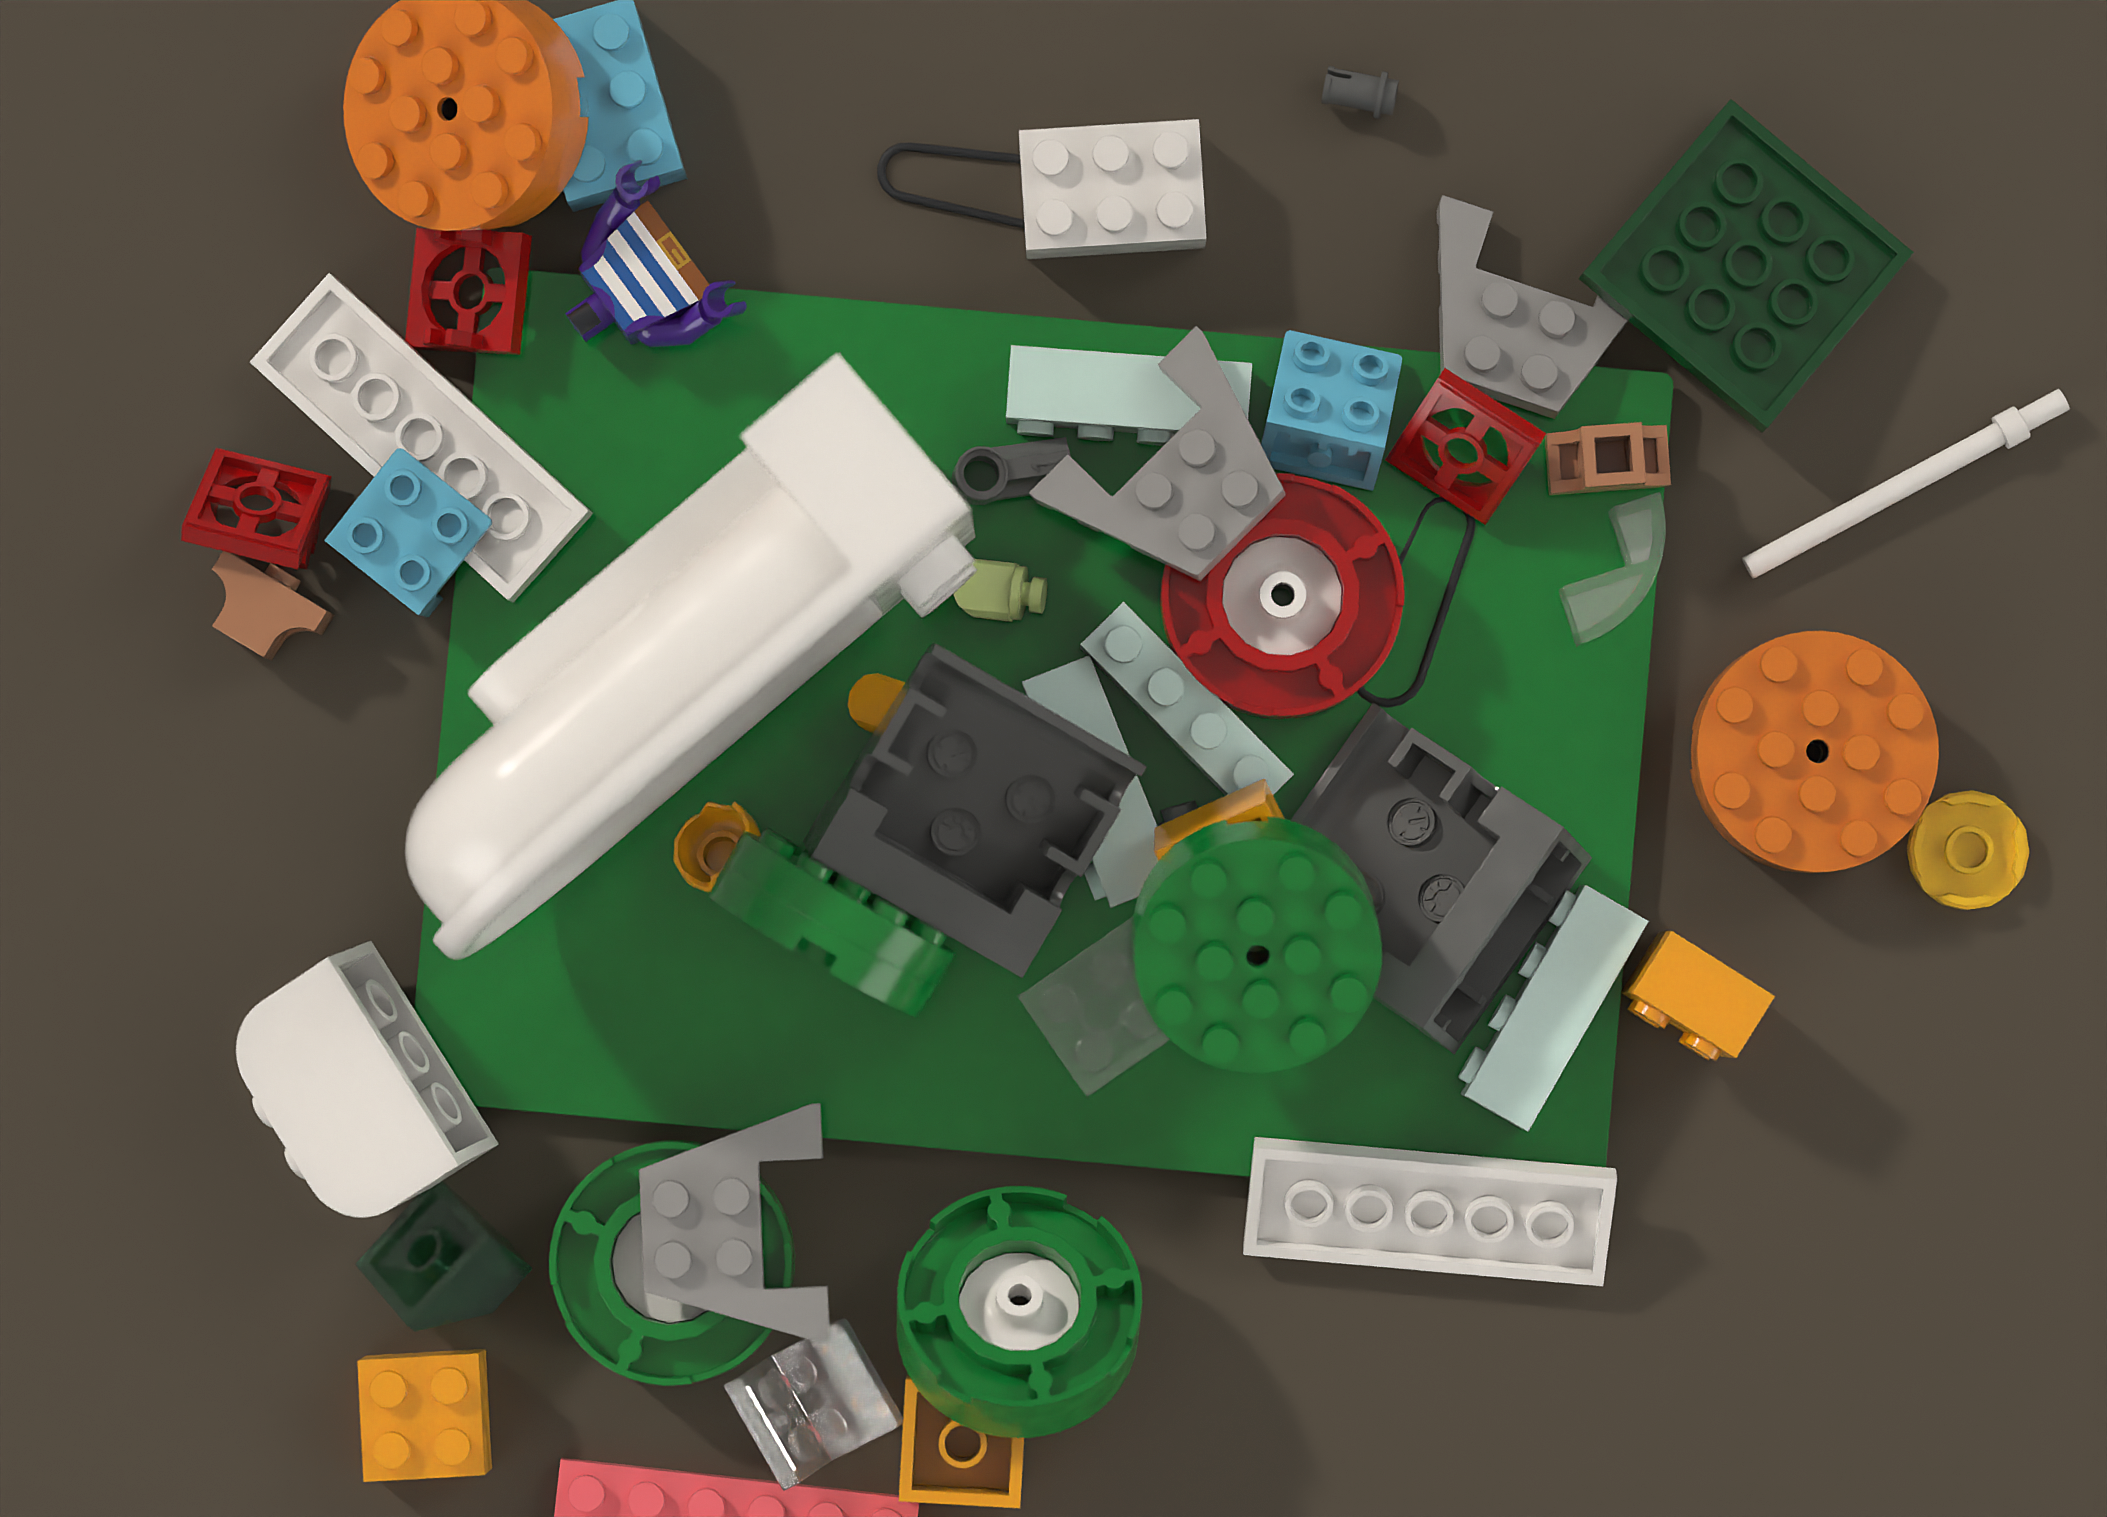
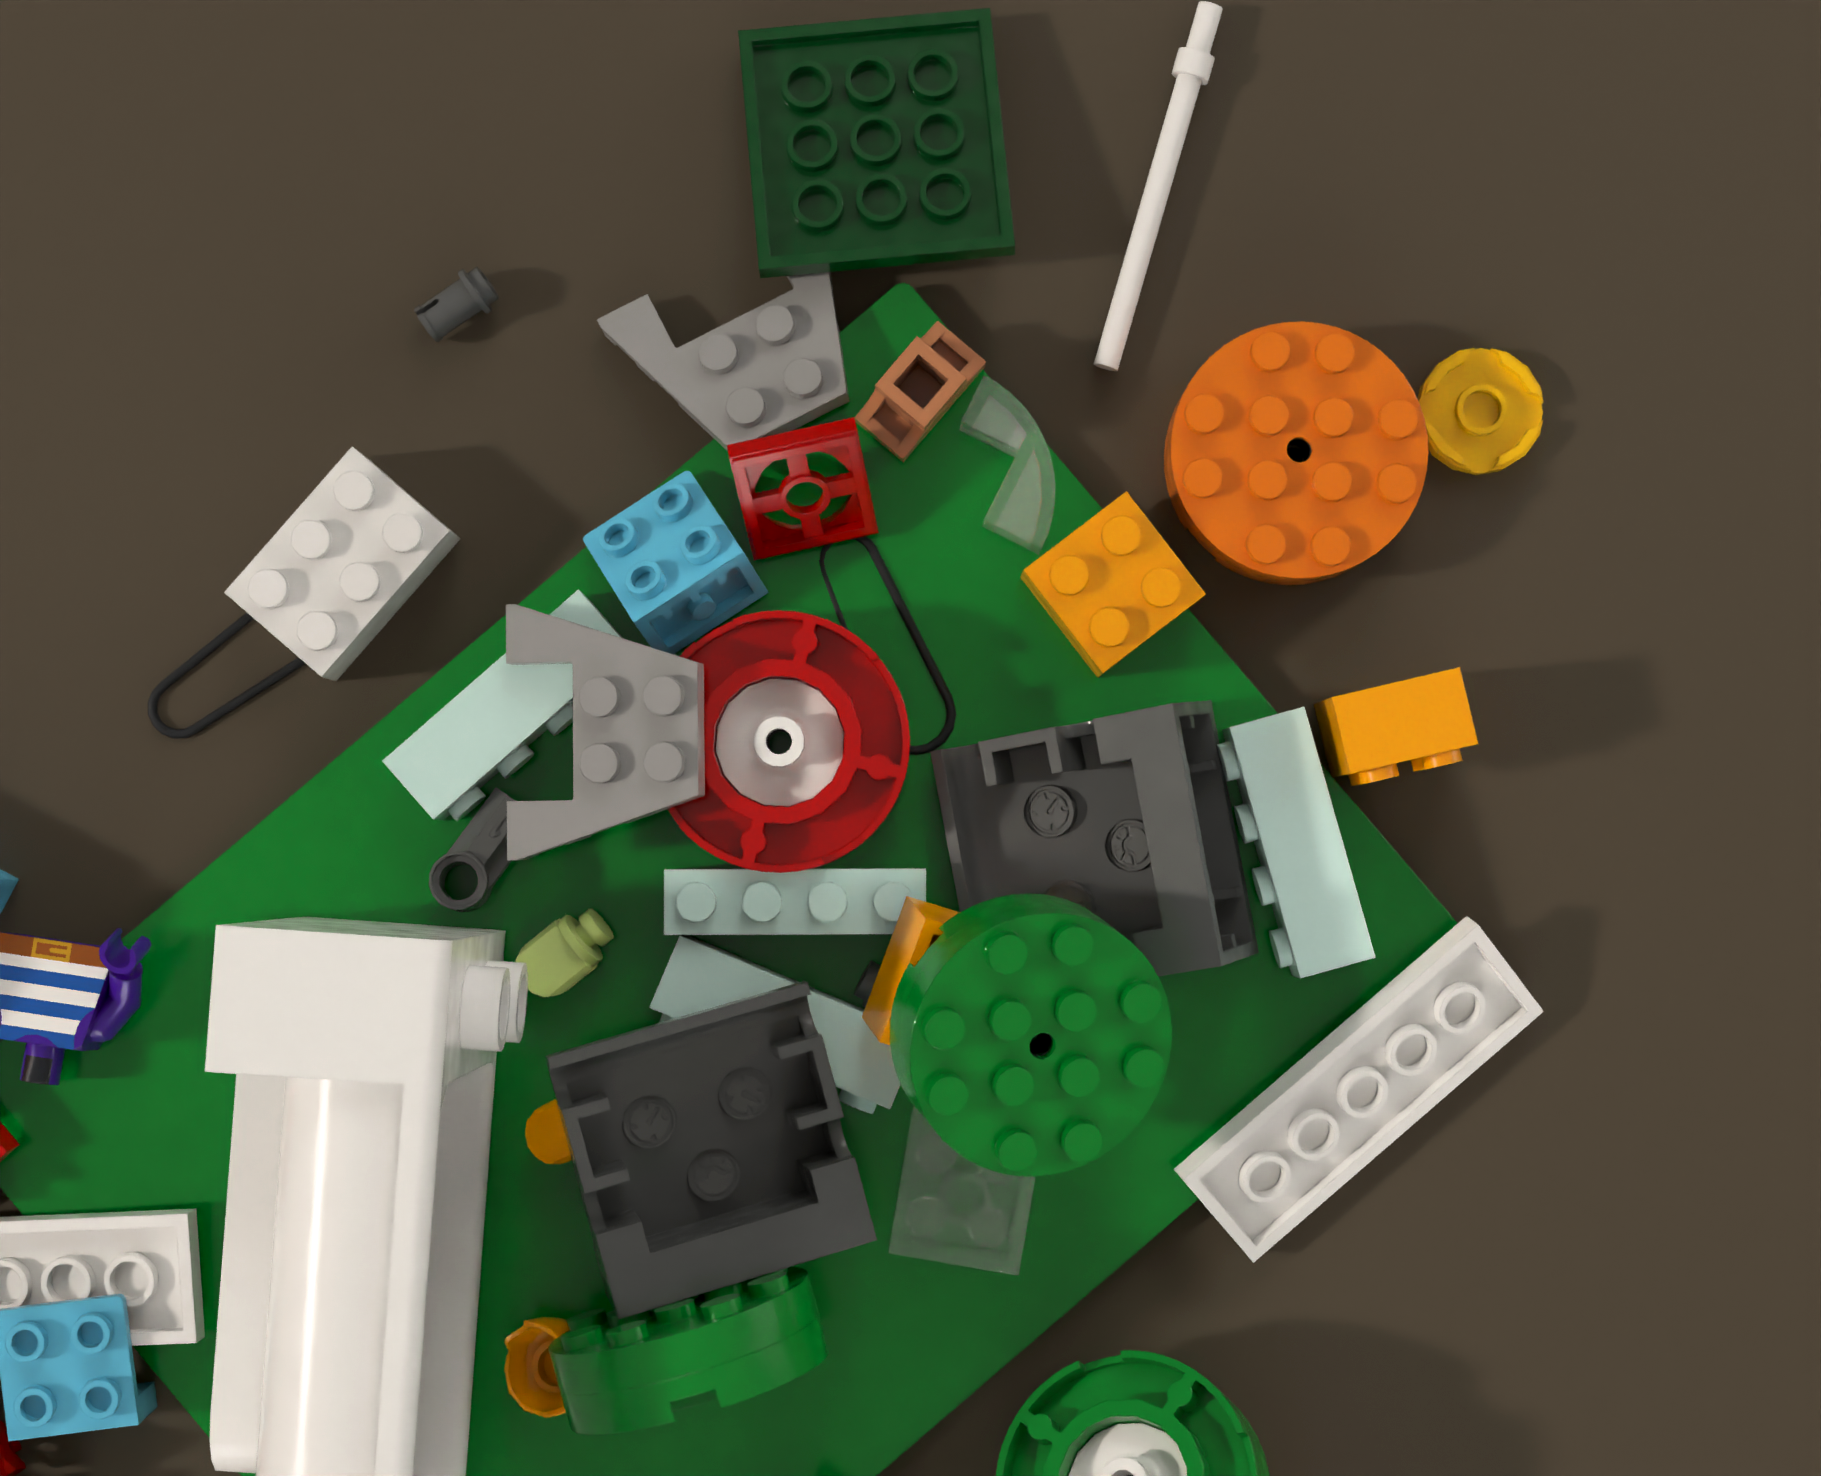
camera: 50 degrees left, 0 degrees up
(1604, 715) = (1112, 584): none -> light orange brick

